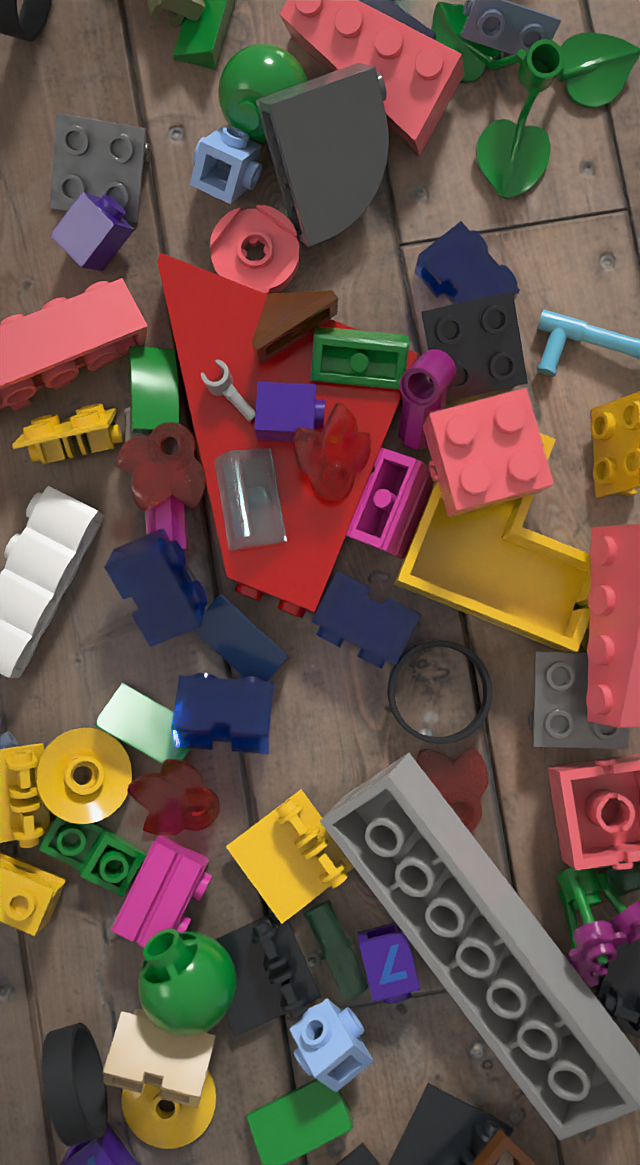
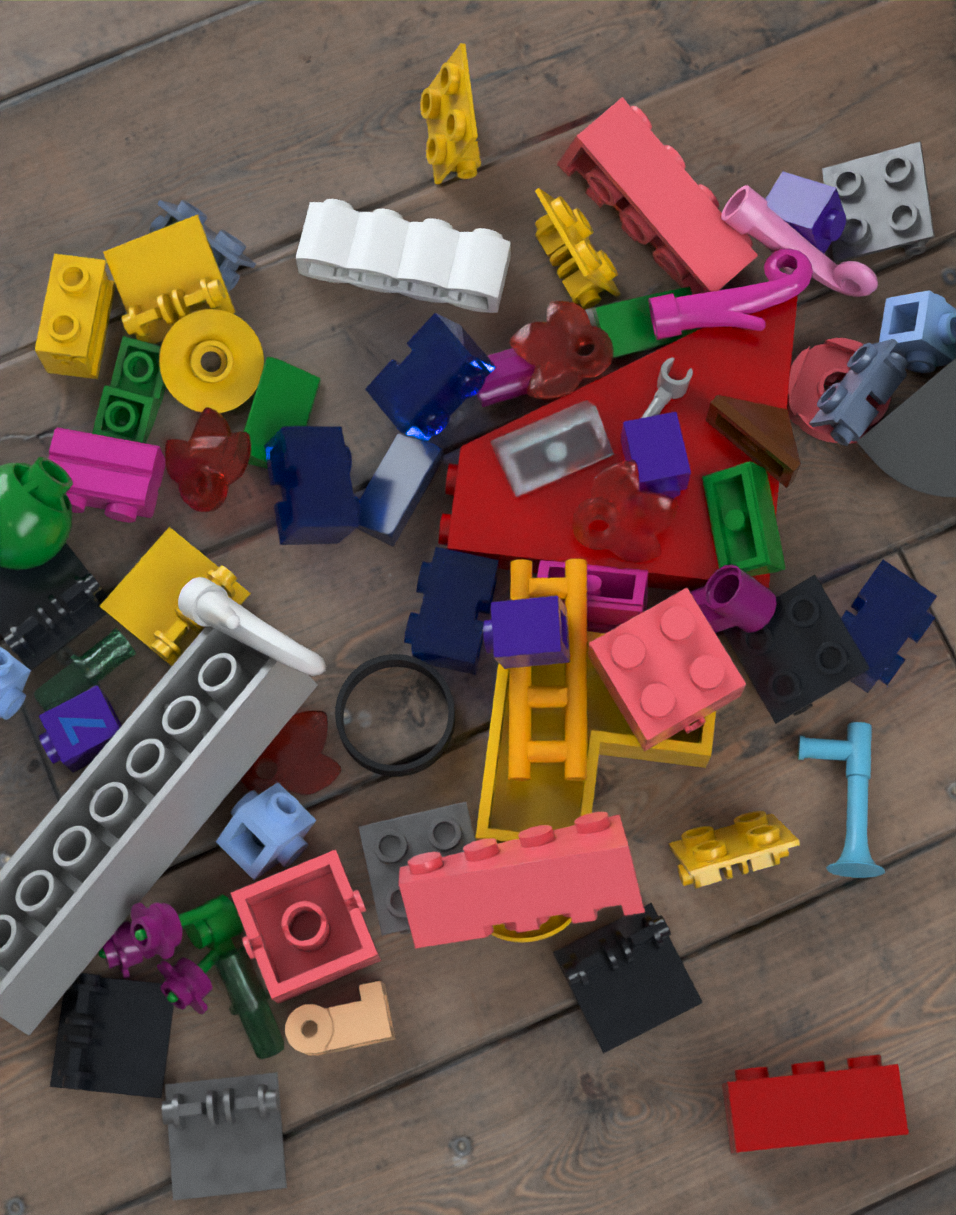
camera: 80 degrees right, 10 degrees down
(86, 270) = (750, 214): none -> bright pink plant
(166, 313) = (732, 306): none -> dark pink plant
(254, 217) = (845, 403): none -> sand blue hinge
(319, 830) = (210, 606): none -> white plant
(429, 561) = (528, 632): none -> dark purple brick
(481, 540) = (571, 695): none -> light orange bar
(518, 824) = (266, 830): none -> light blue brick

